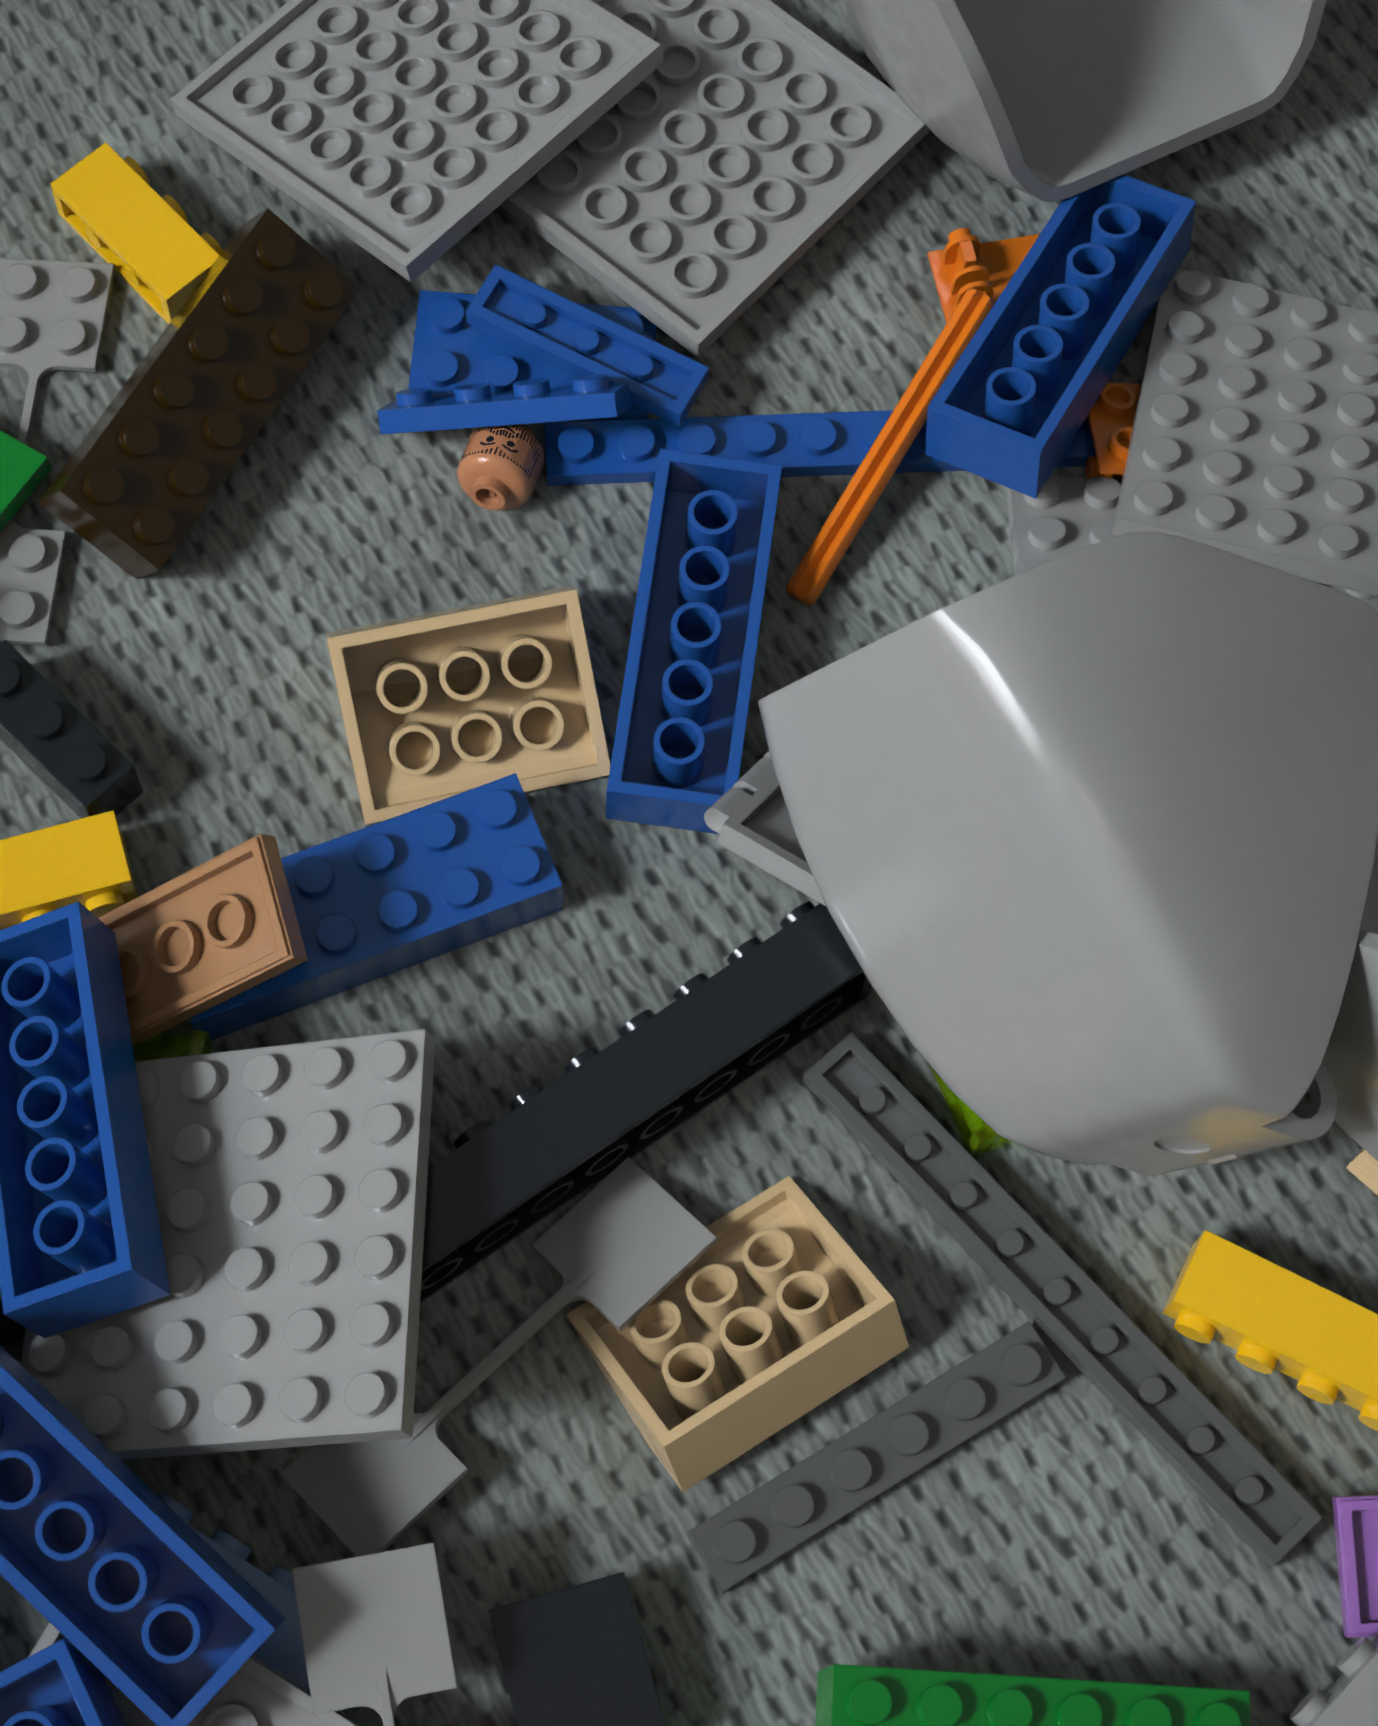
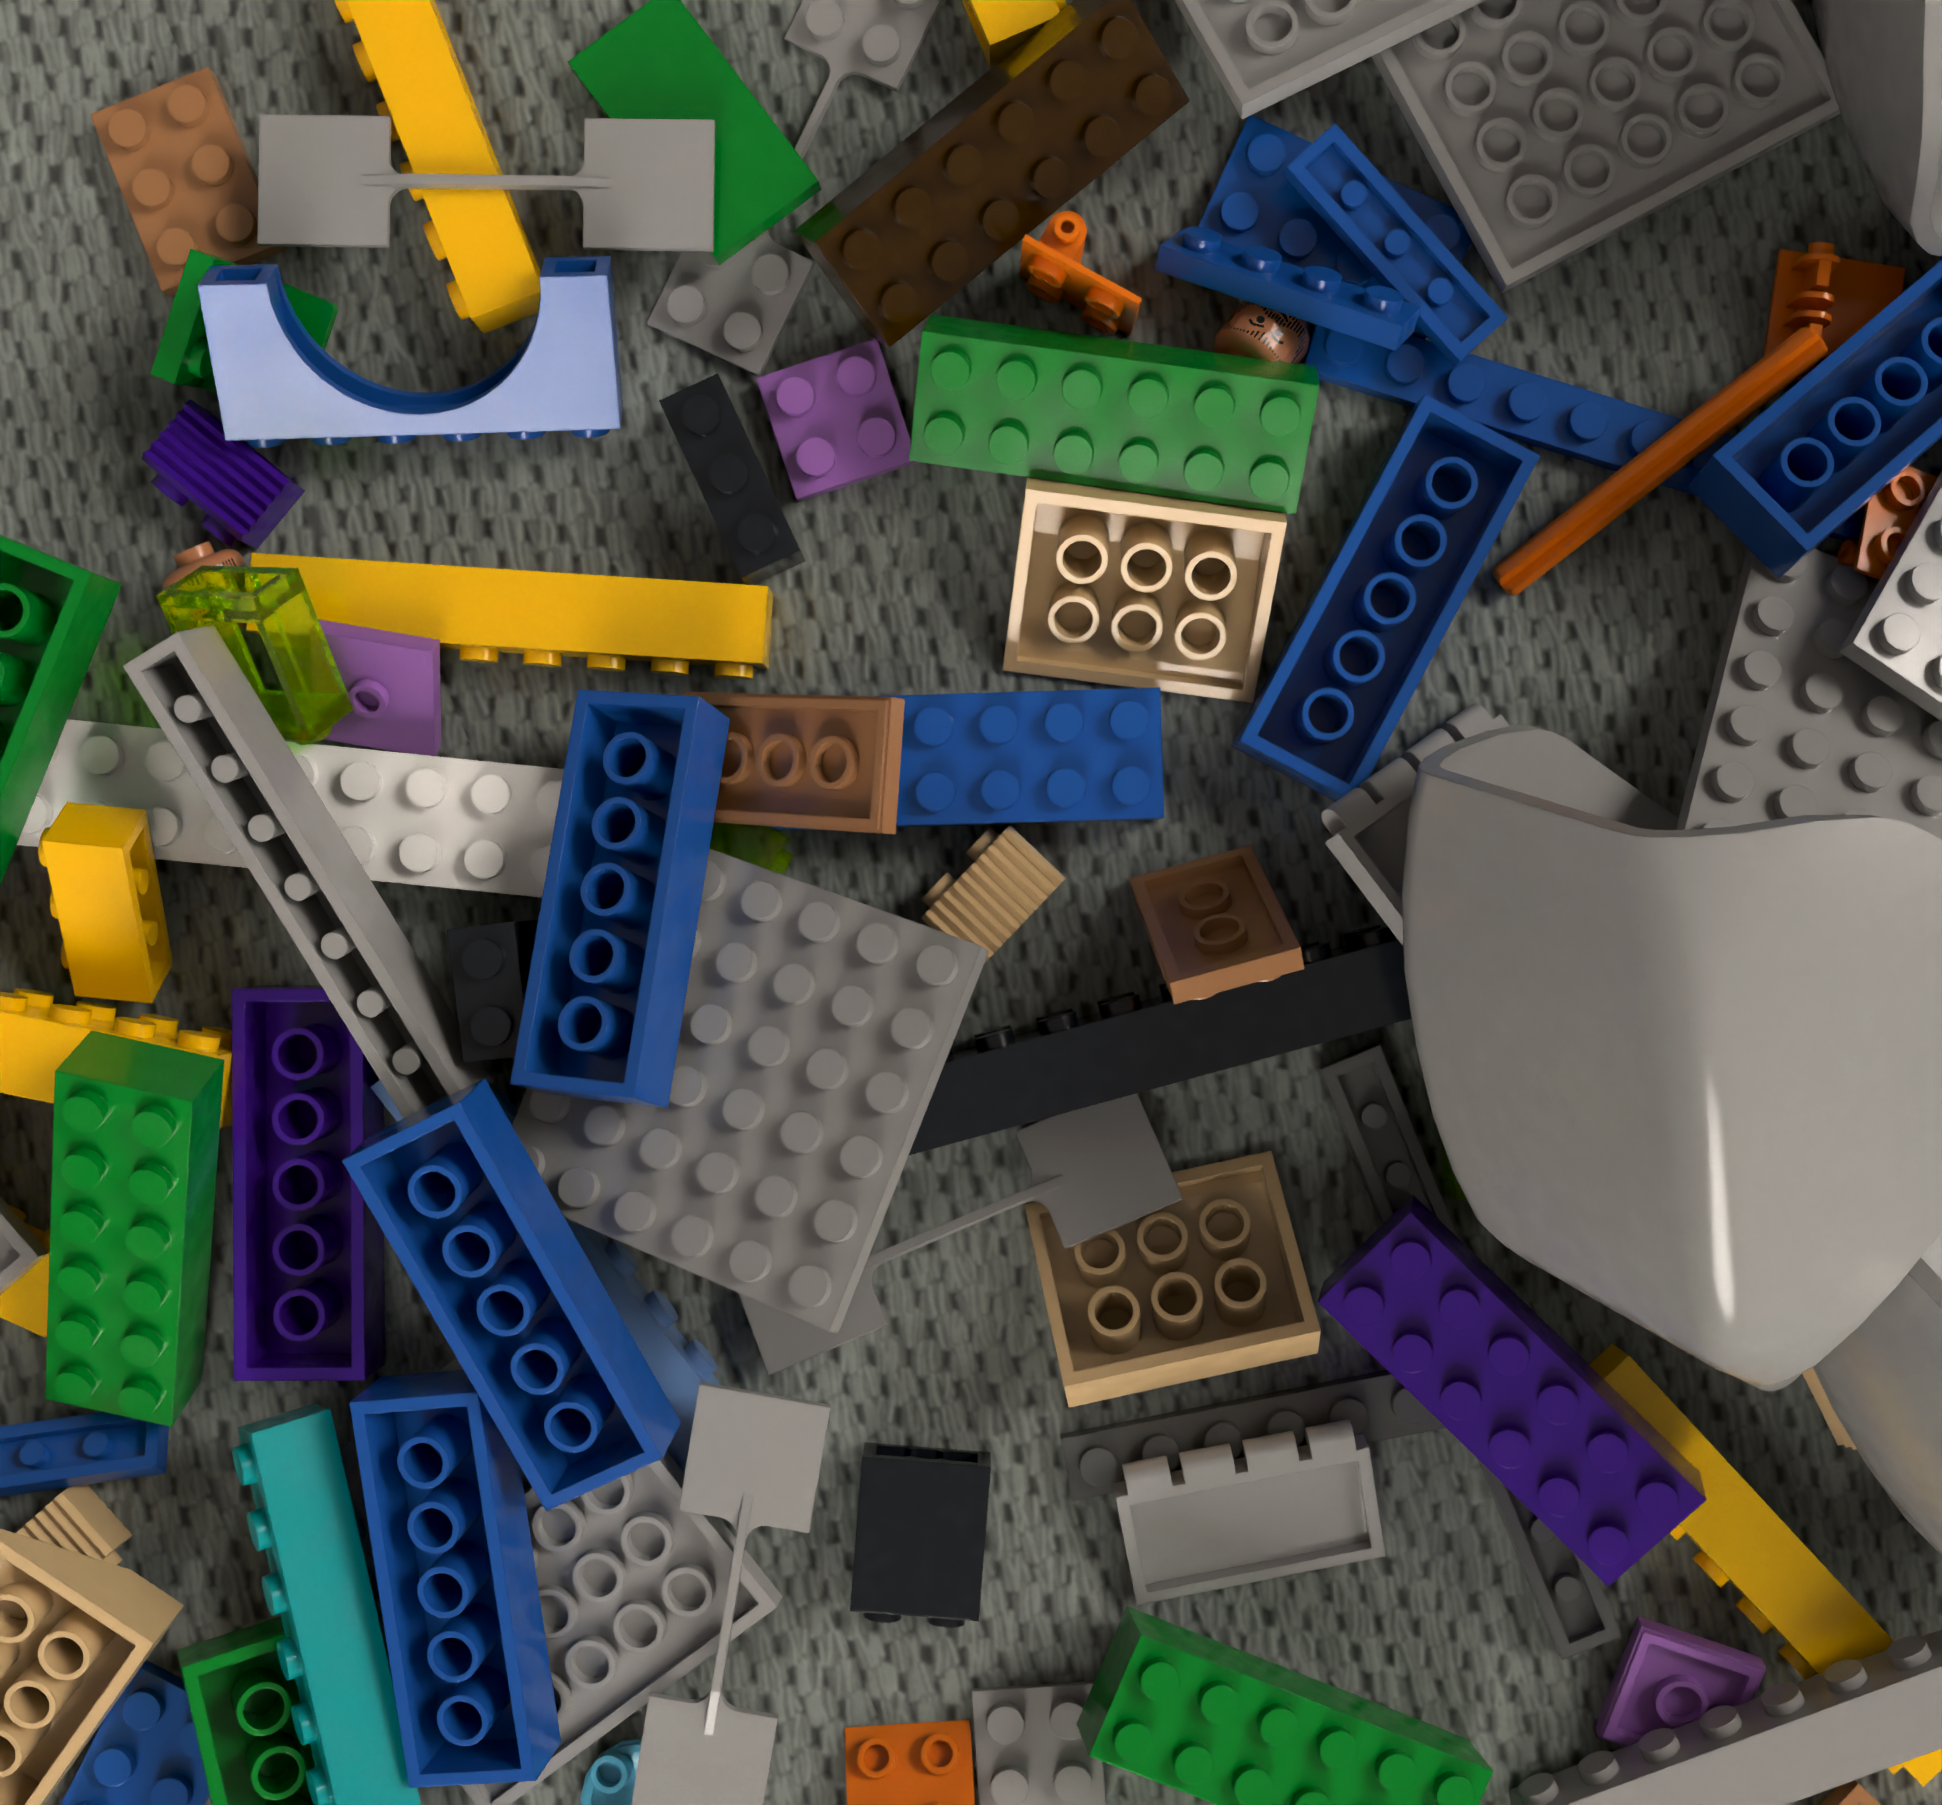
camera: 25 degrees right, 20 degrees up
(132, 658) = (836, 420): none -> medium lavender plate
(301, 462) = (1057, 273): none -> orange hinge
(383, 558) = (1113, 413): none -> green brick
(438, 998) = (994, 892): none -> tan brick
(647, 961) = (1215, 925): none -> medium nougat plate
(906, 1538) = (1251, 1515): none -> light grey hinge
(1102, 1292) = (1512, 1391): none -> dark purple brick

